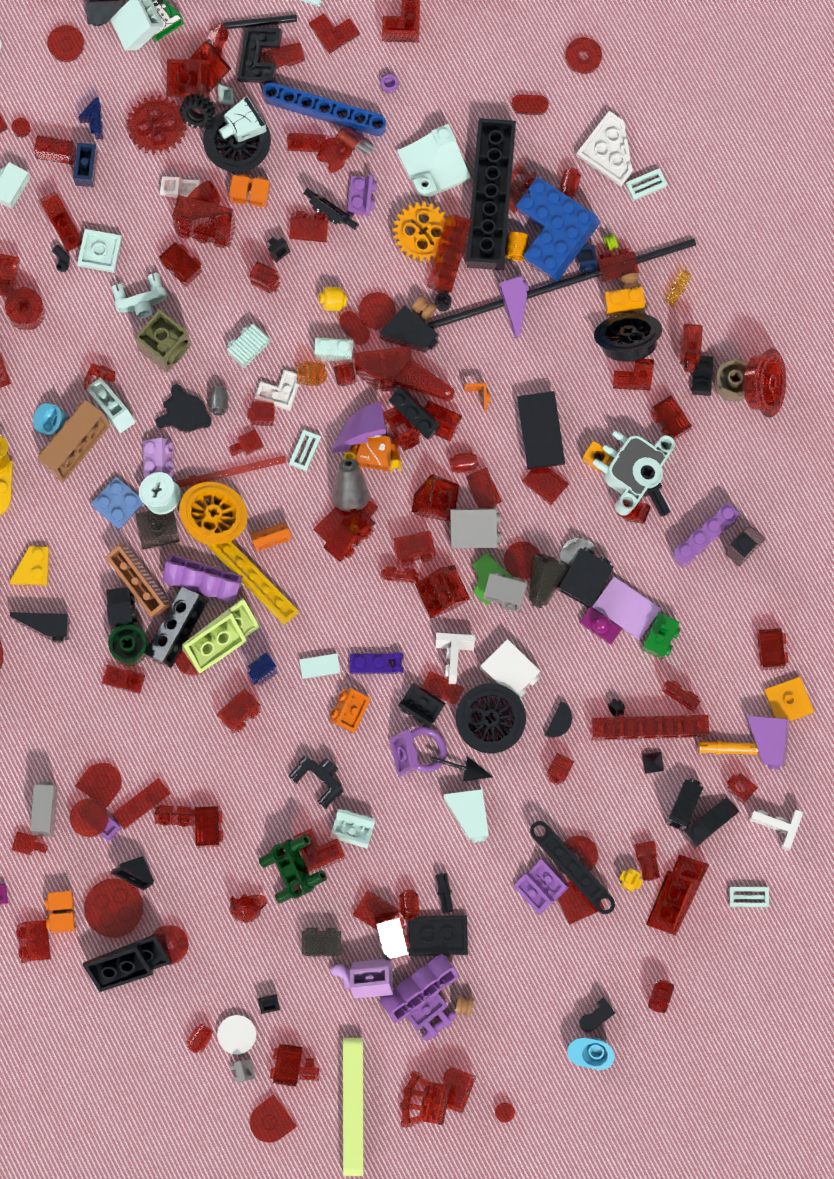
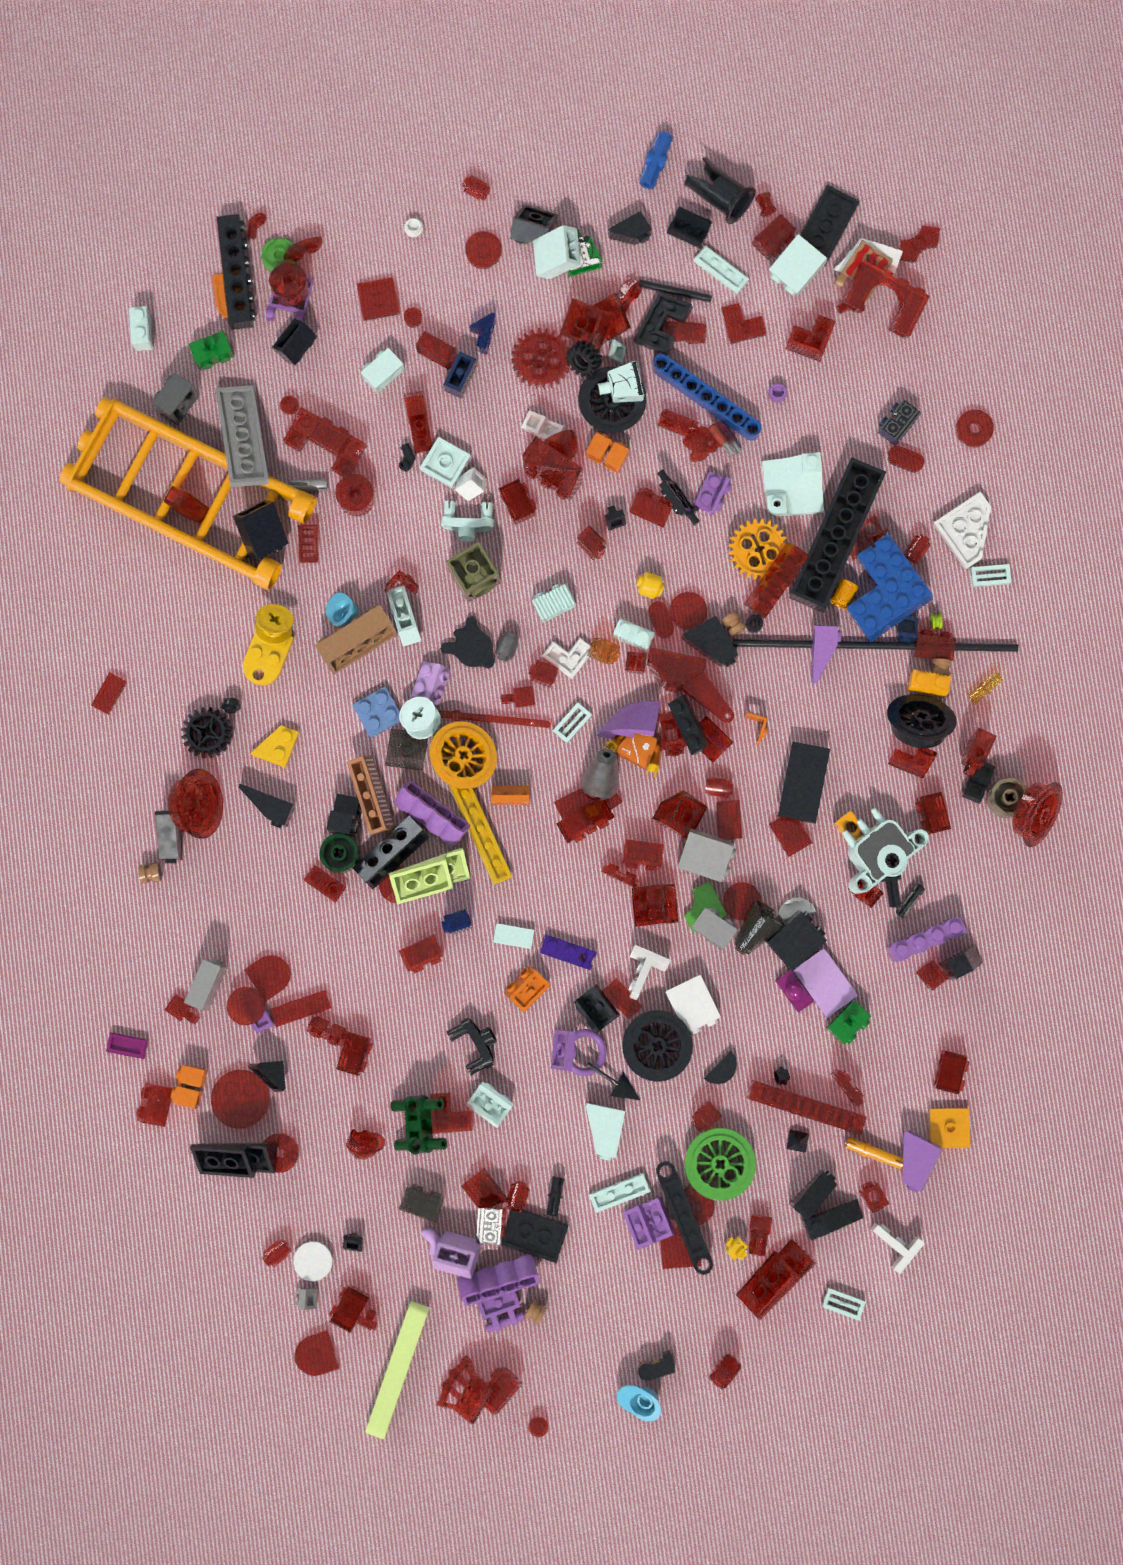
camera: 25 degrees right, 5 degrees up
(131, 262) = (470, 484): none -> white panel
(503, 868) = (619, 1192): none -> light aqua tile
(511, 73) = (899, 422): none -> brick
(613, 816) = (736, 1185): none -> bright green piece
(678, 505) = (910, 900): none -> black axle
(722, 566) = (931, 975): none -> clear red panel

